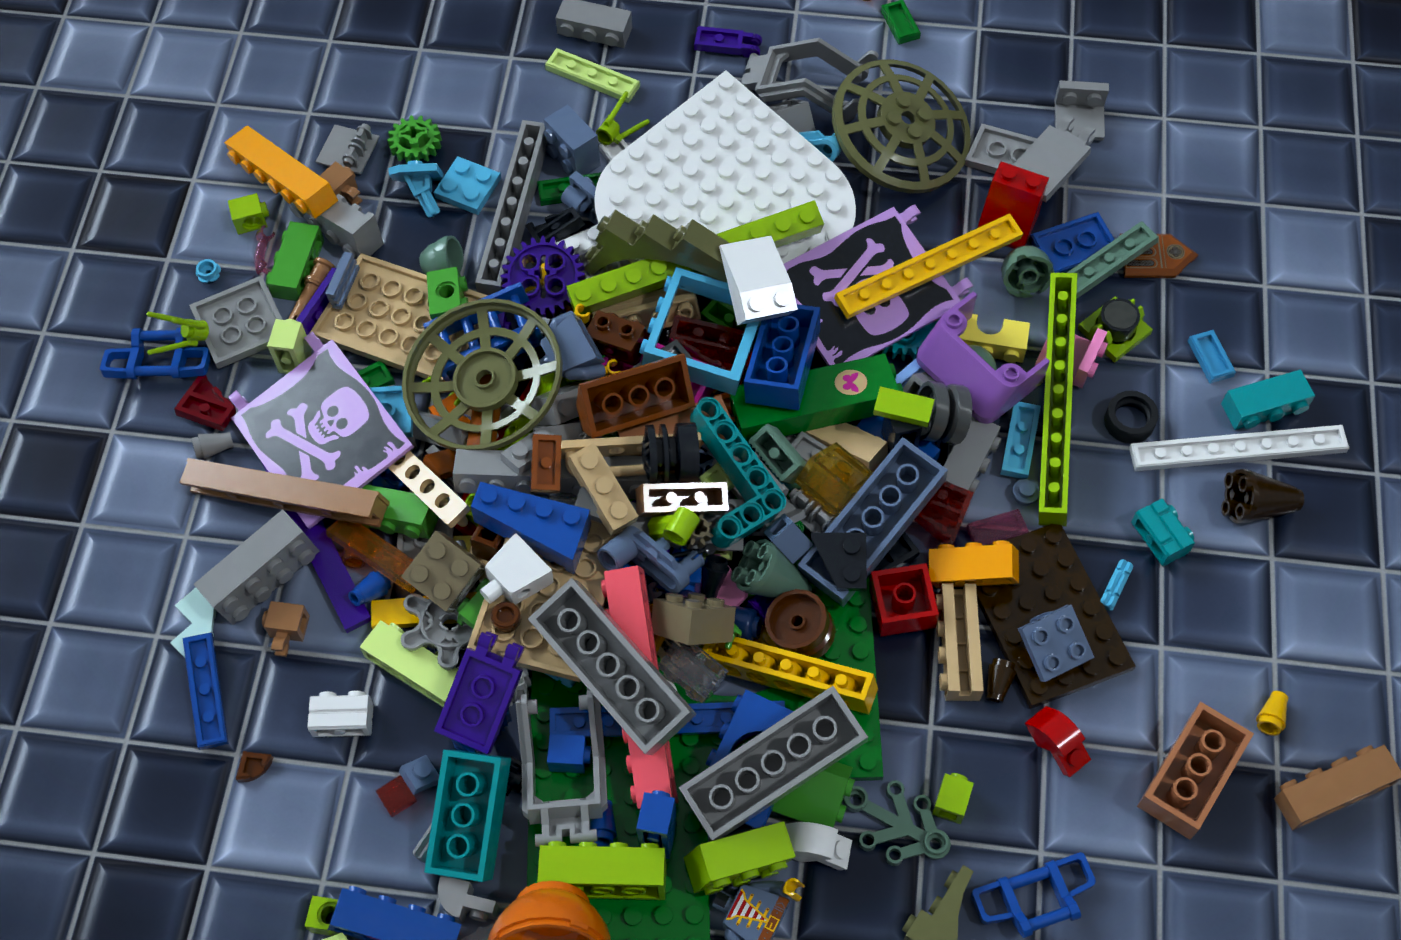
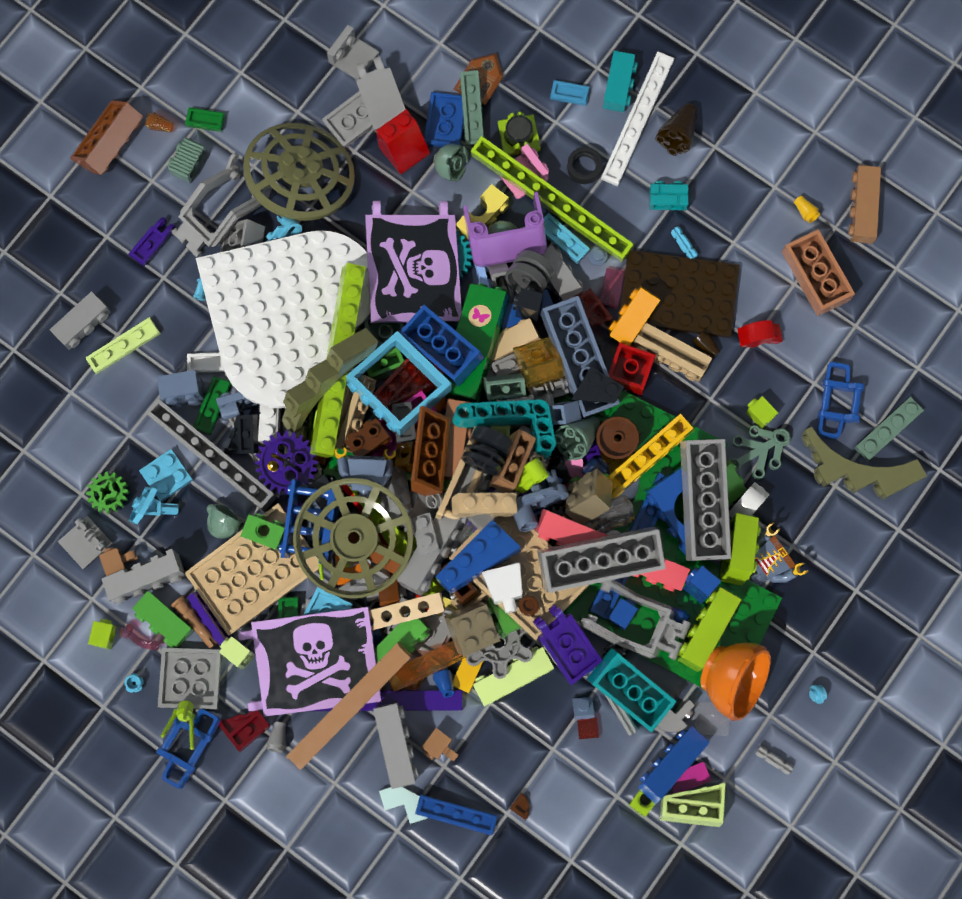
camera: 60 degrees left, 15 degrees up
(280, 172) = (87, 596): light orange brick -> none
(340, 715) = (519, 738): white brick -> none
(342, 280) = (204, 594): sand blue tile -> none
(546, 463) = (445, 529): dark orange plate -> none
(609, 130) = (183, 360): lime plant -> none
(757, 280) = (392, 332): white slope -> none
(842, 25) = (186, 160): none -> sand green brick
(903, 406) = (525, 296): lime tile -> none
(928, 266) = (422, 219): yellow plate -> none
(1055, 642) = (706, 300): sand blue plate -> none

